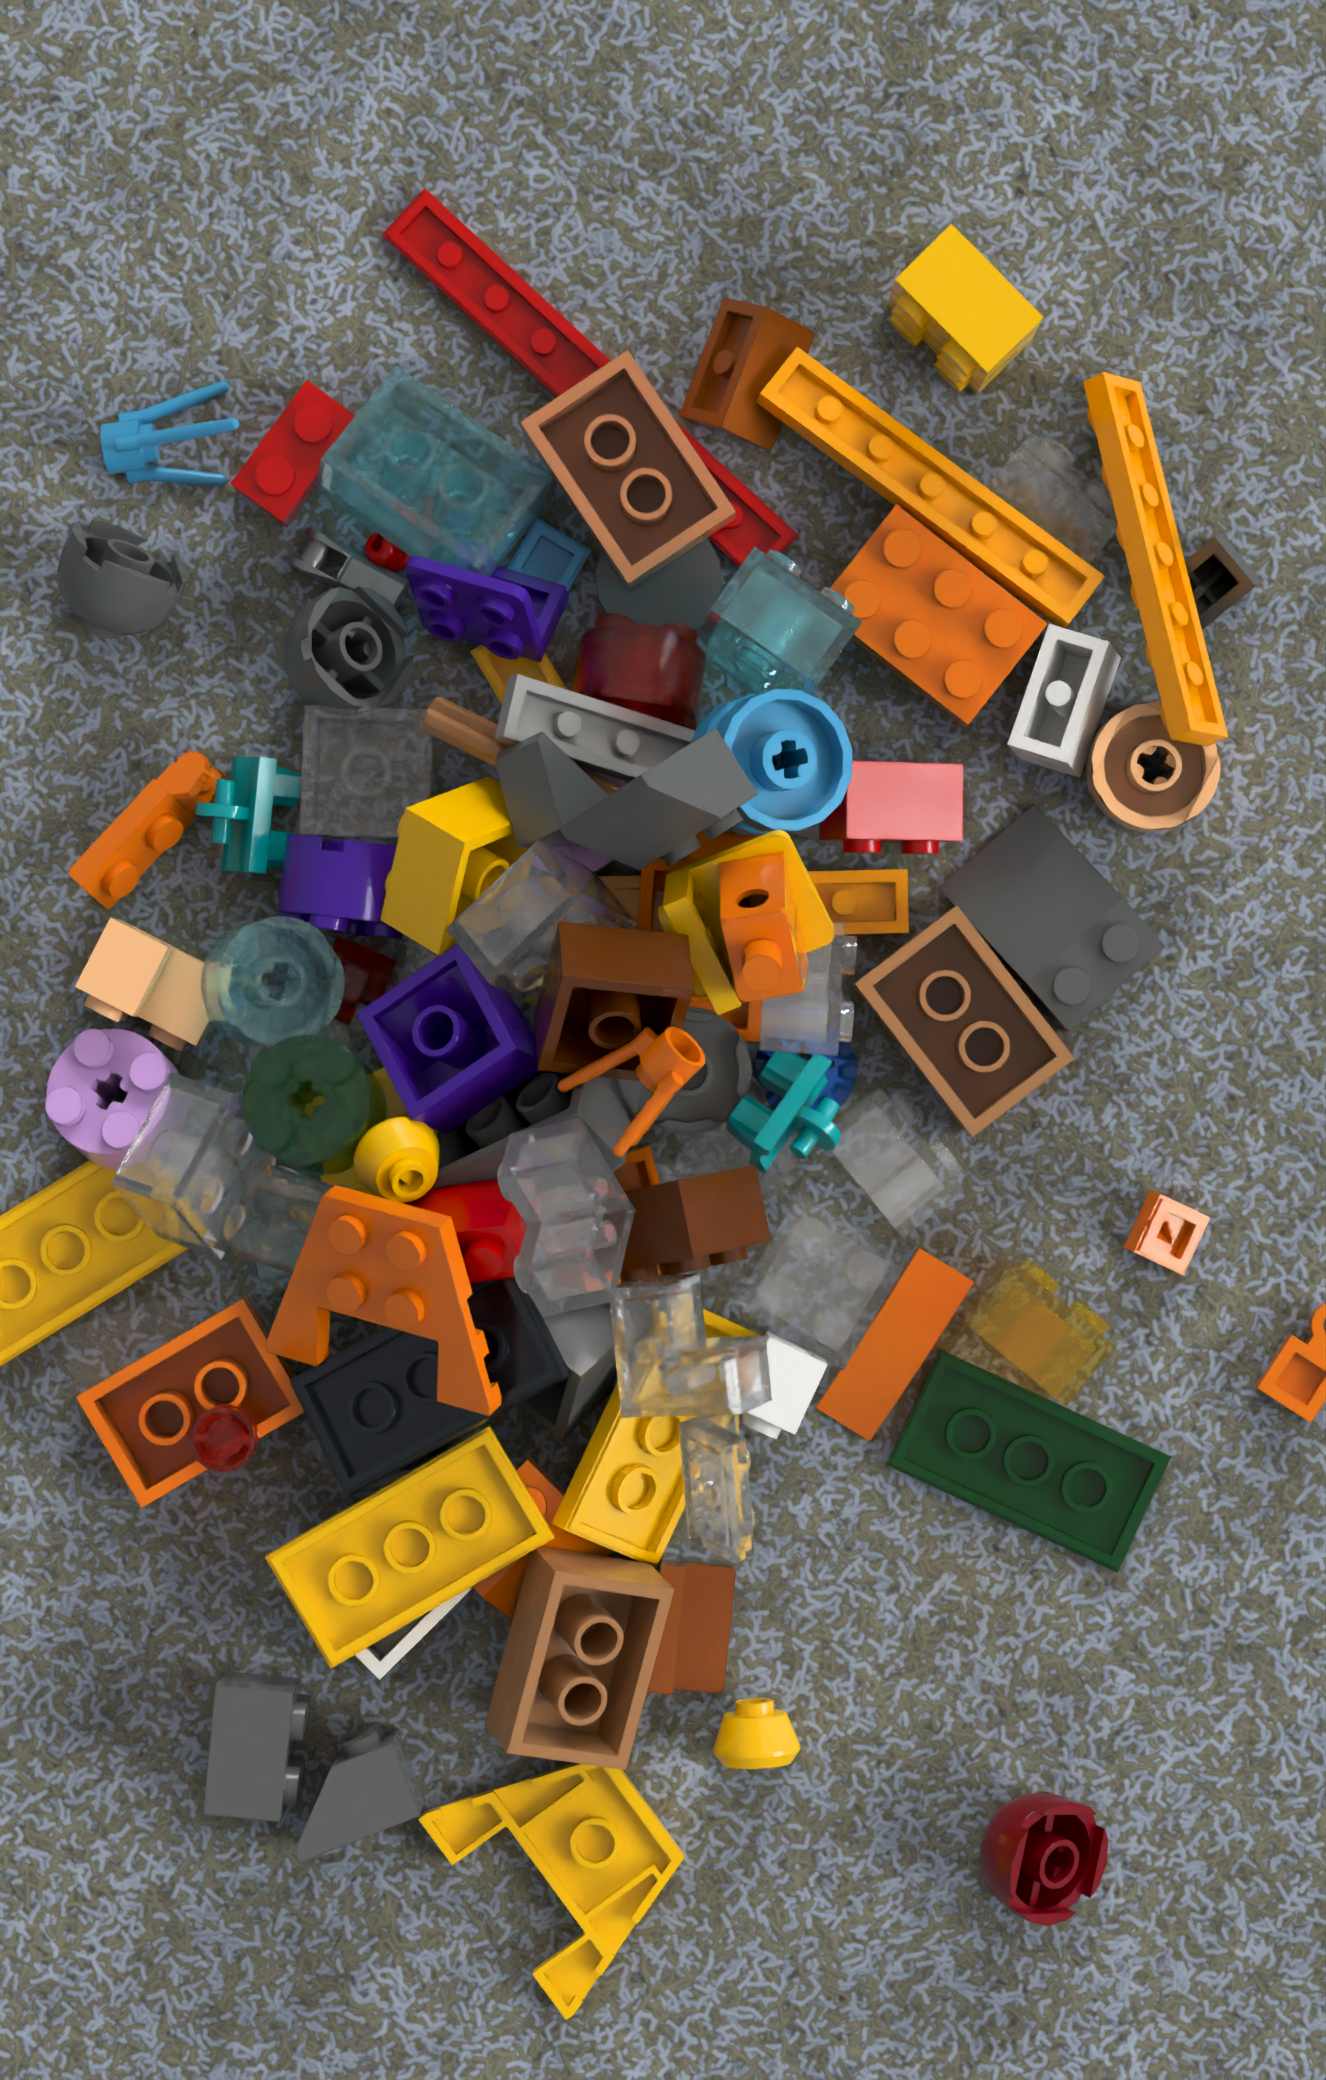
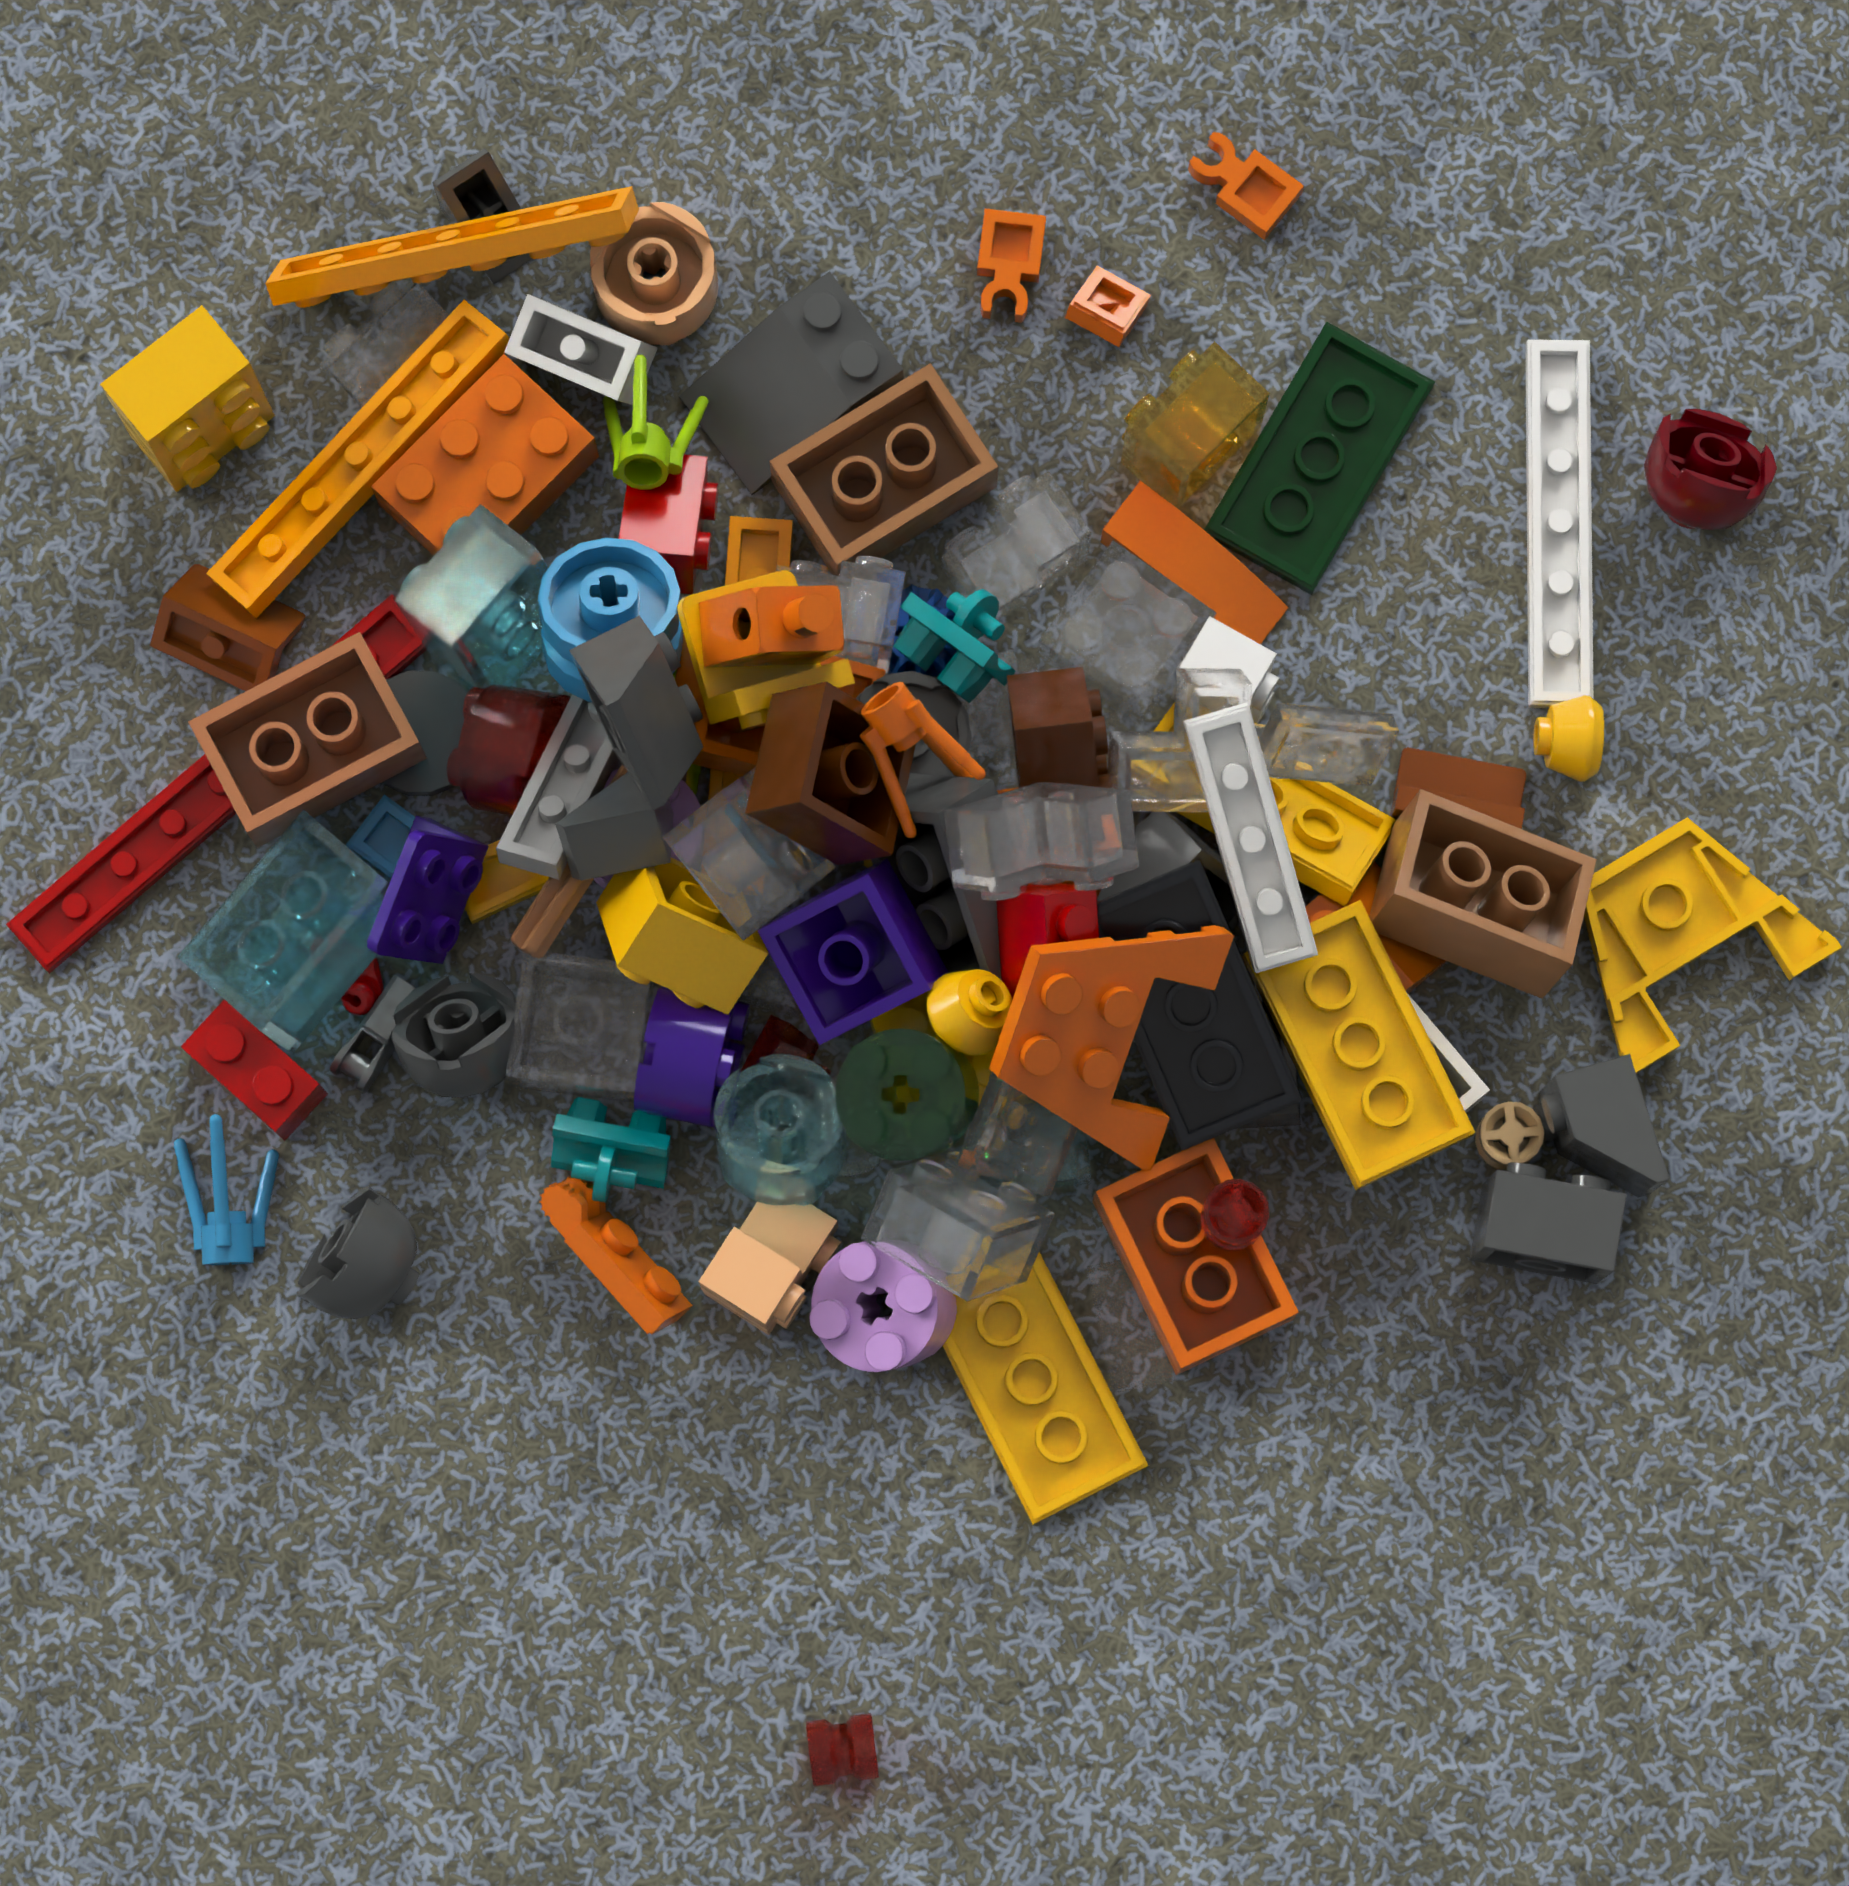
camera: 85 degrees left, 10 degrees down
(339, 1714) = (1519, 1124): none -> tan wheel
(594, 1424) = (1250, 837): none -> white tile
(952, 778) = (644, 452): none -> lime plant
(983, 1708) = (1559, 521): none -> white tile
(1214, 1128) = (1010, 253): none -> orange plate

